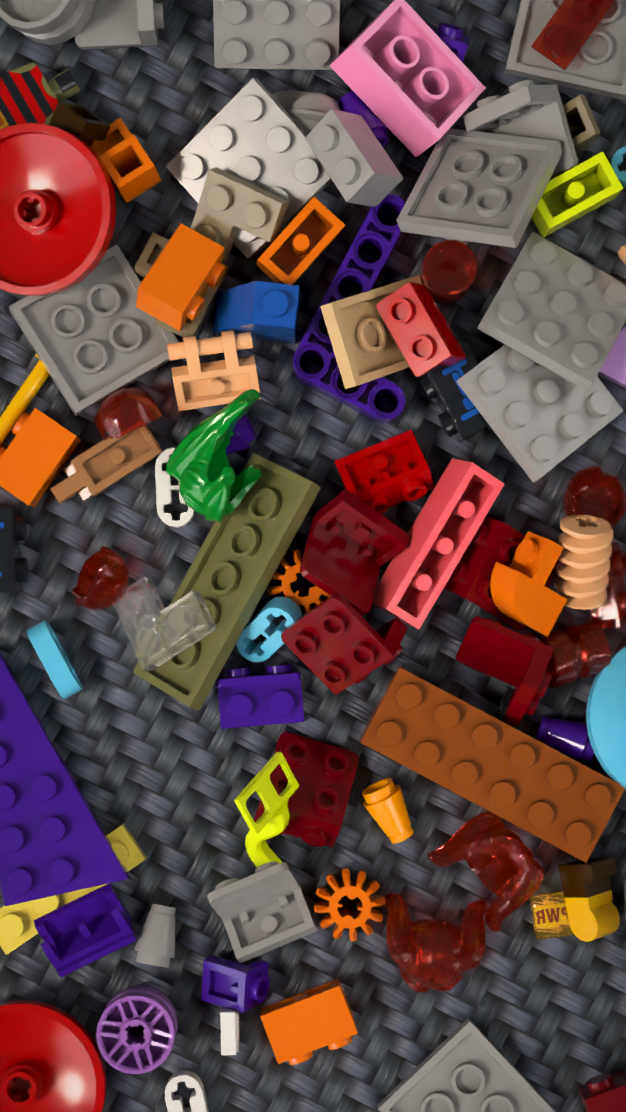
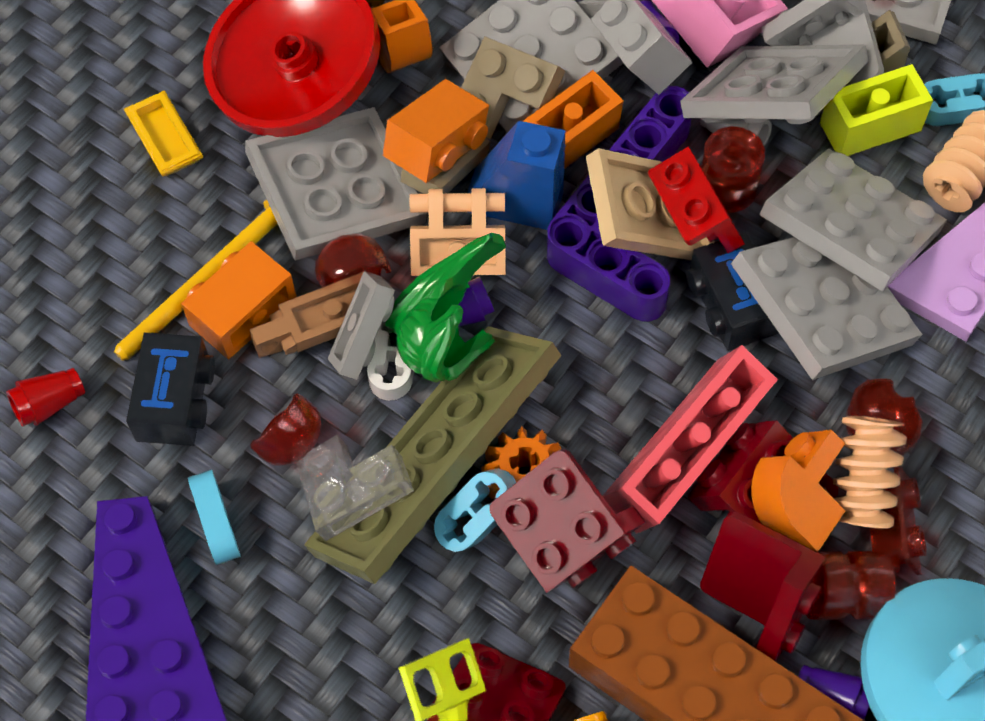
camera: 15 degrees right, 25 degrees down
(146, 476) = (355, 339): none -> light grey plate
(260, 699) = (453, 593): dark purple bracket -> none
(348, 548) = (591, 420): dark red bracket -> none
(387, 472) = (638, 369): red bracket -> none

